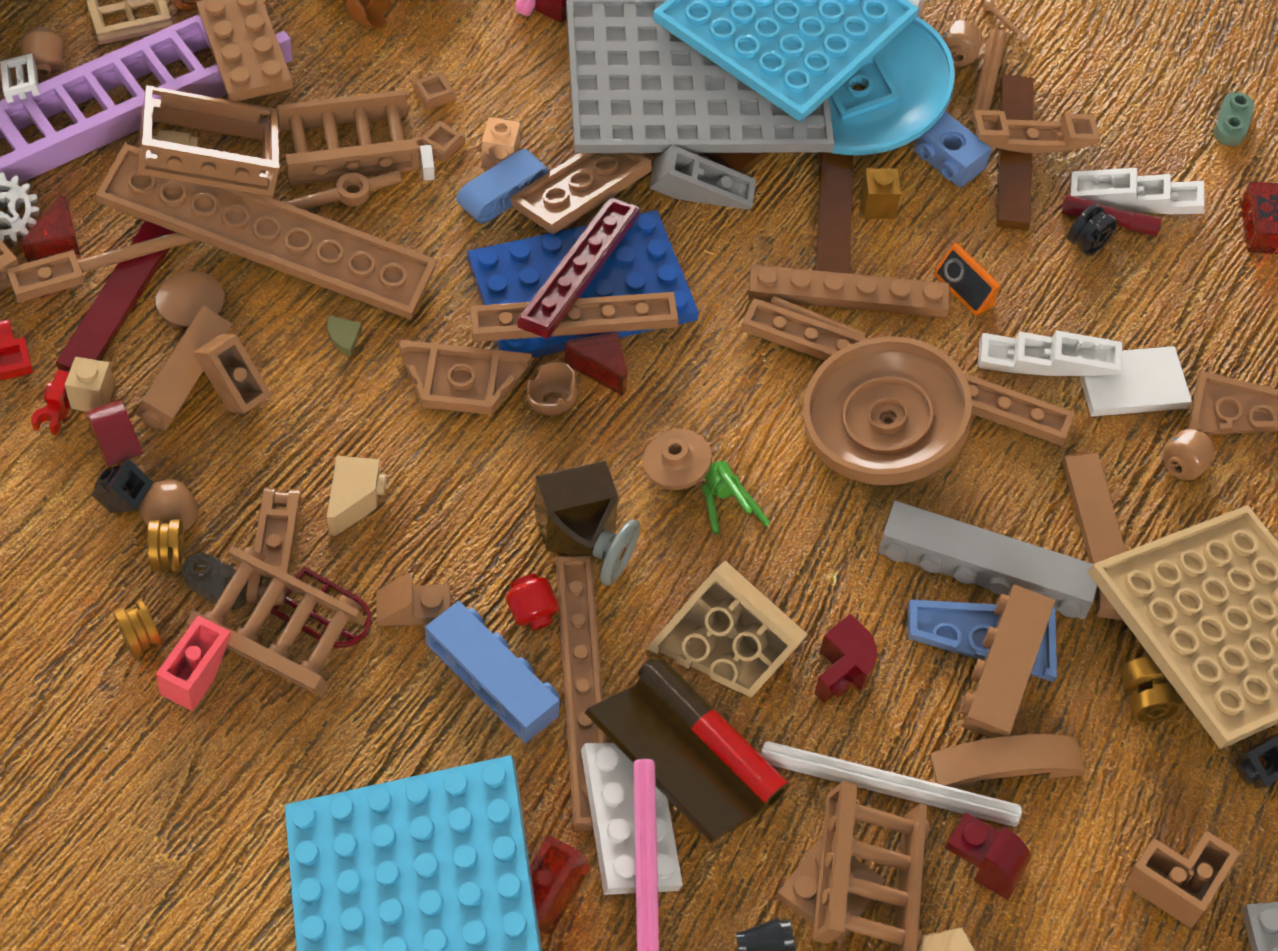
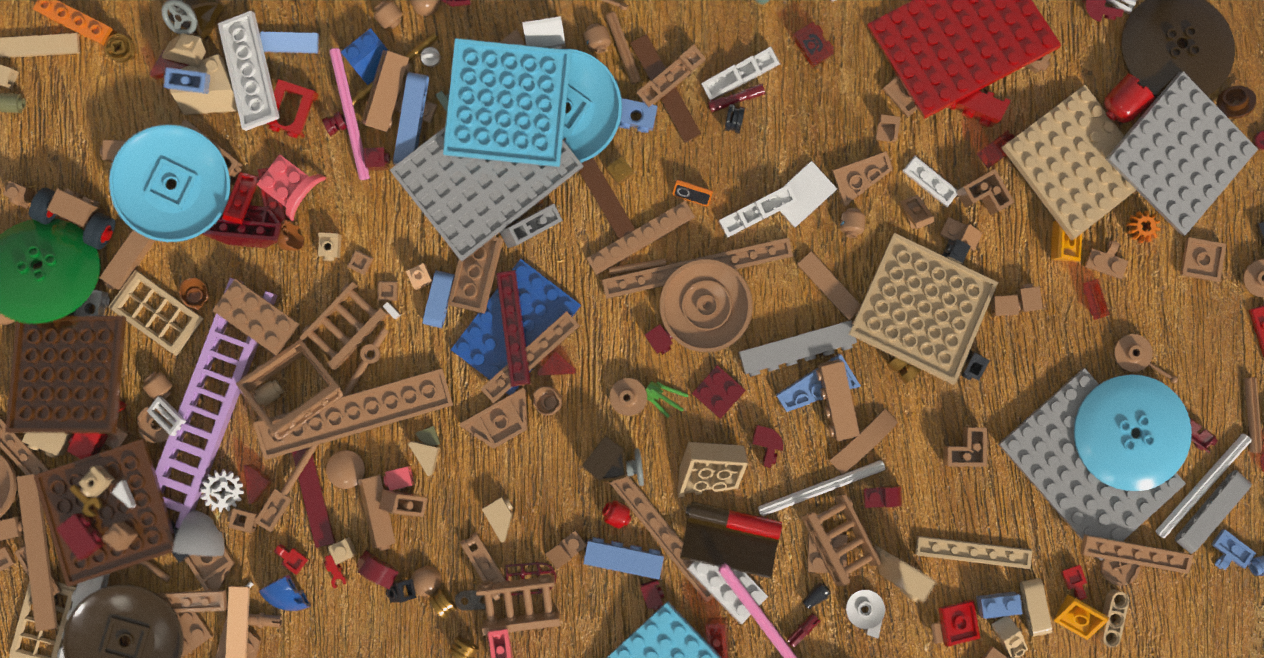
camera: 30 degrees left, 30 degrees up
(263, 349) = (399, 478): none -> coral brick
(320, 349) = (426, 455): none -> tan slope
(412, 45) = (335, 241): none -> tan brick
(498, 741) = (652, 594): none -> dark red brick
(781, 419) = (659, 339): none -> dark red brick
(820, 547) = (718, 392): none -> dark red plate

